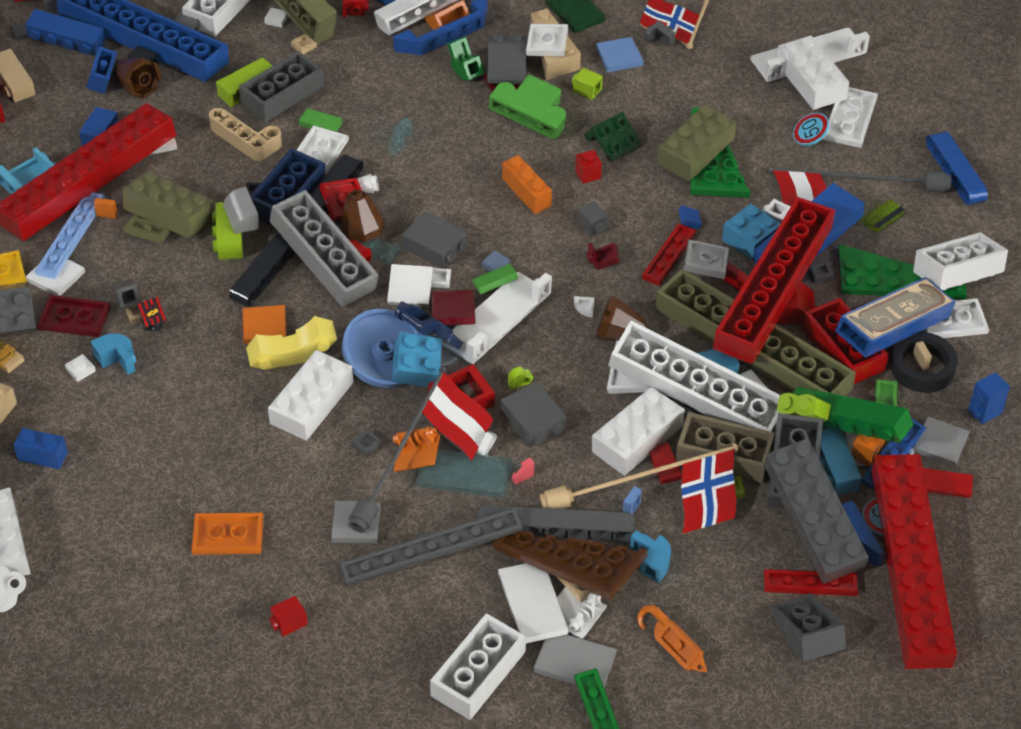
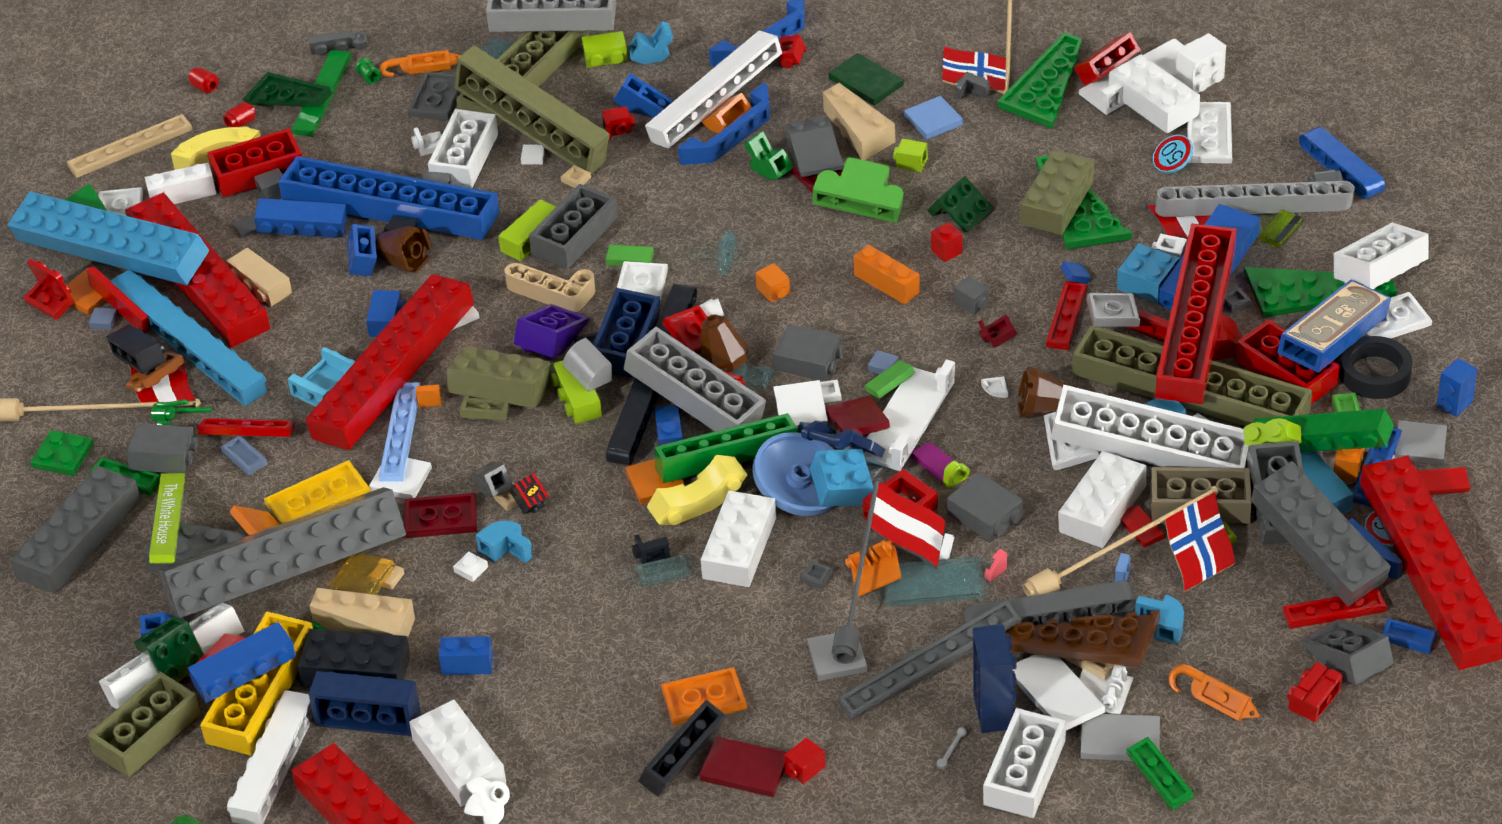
camera: 10 degrees left, 5 degrees down
(186, 579) = (681, 748): none -> black brick
(227, 171) = (548, 330): none -> dark purple slope
(233, 389) = (651, 550): none -> black bracket
(235, 608) = (744, 766): none -> dark red tile
(238, 409) = (662, 571): none -> clear light blue tile
(291, 284) = (668, 424): none -> blue slope
(342, 308) = (694, 454): none -> green brick
(409, 647) = (942, 763): none -> light grey hinge
(428, 171) = (772, 282): none -> orange brick
(472, 580) = (993, 677): none -> dark blue brick
(505, 359) = (932, 459): none -> magenta tile
(547, 40) = (853, 116): white tile -> none
(719, 48) = (1043, 86): none -> green wing
(763, 659) = (1314, 691): none -> red brick
(783, 33) = (1107, 58): none -> red brick
(861, 54) = (1201, 63): none -> white brick
(868, 184) = (1255, 198): none -> light grey beam
(869, 624) = (1409, 635): none -> blue tile
(922, 356) = (1372, 361): tan tile -> none

